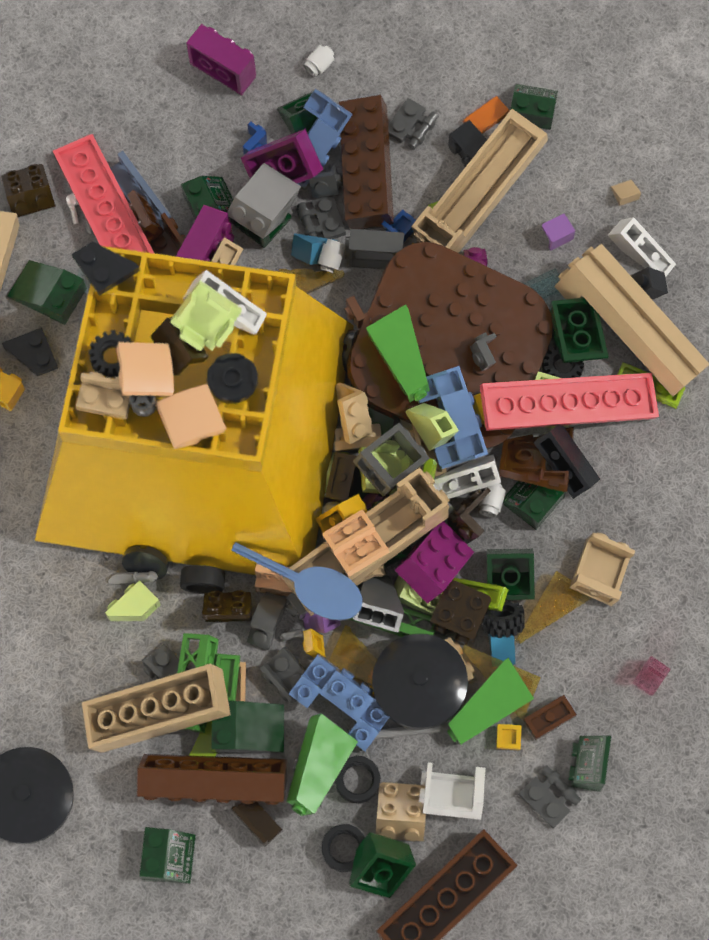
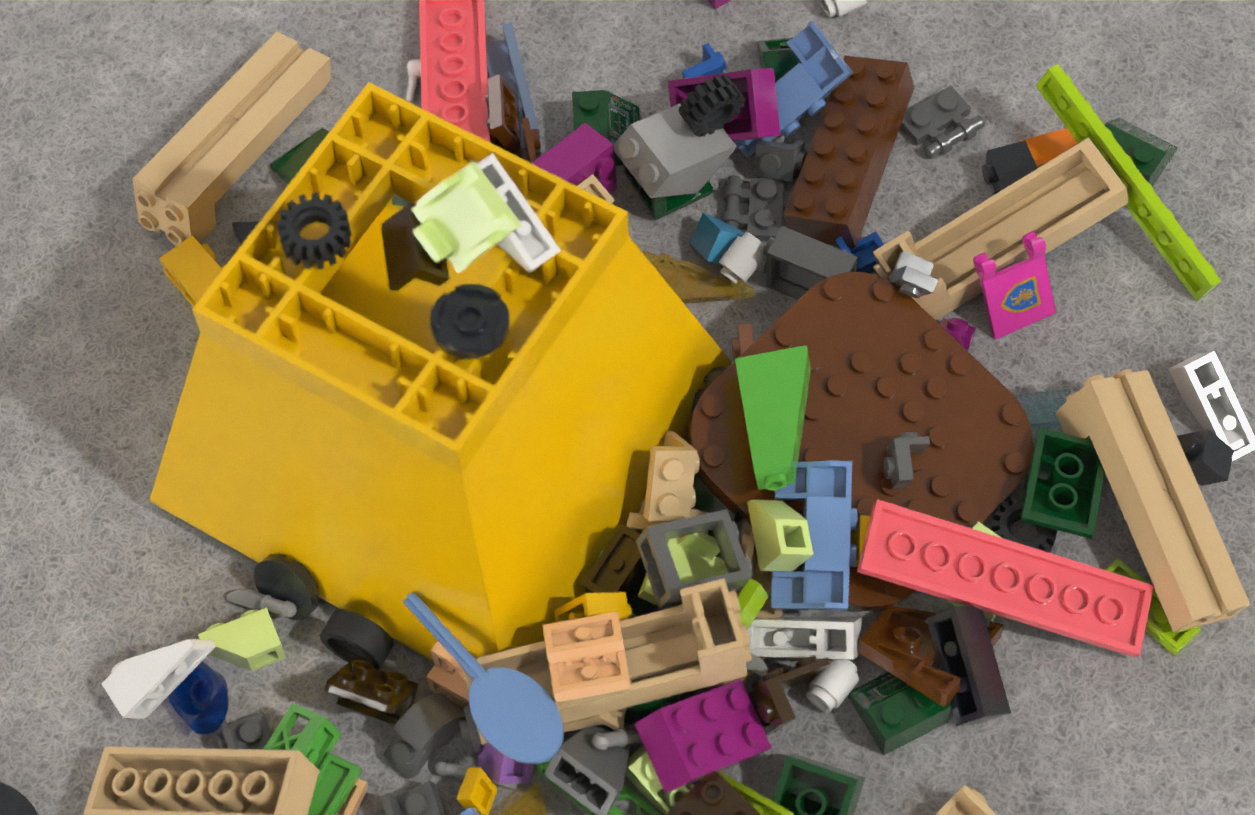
camera: 25 degrees right, 10 degrees down
(28, 190) = (361, 37): dark brown bracket -> none
(84, 655) = (148, 679): none -> white slope
(102, 396) = (278, 281): tan bracket -> none
(103, 267) = (360, 111): black wing -> none
(122, 649) = (201, 699): none -> clear blue piece
(143, 410) = (328, 297): dark grey wheel -> none
(145, 369) = (346, 260): light nougat slope -> none
(190, 416) = (384, 351): light nougat slope -> none
(279, 167) = (711, 105): none -> black tyre
(385, 581) = (616, 738): none -> light grey piece
(443, 234) = (913, 275): none -> bracket
(504, 219) = (1019, 292): none -> dark pink flag
(557, 137) = (1143, 202): none -> lime plate
(558, 231) = (1095, 339): medium lavender panel -> none
(626, 192) = (1223, 320): tan slope -> none

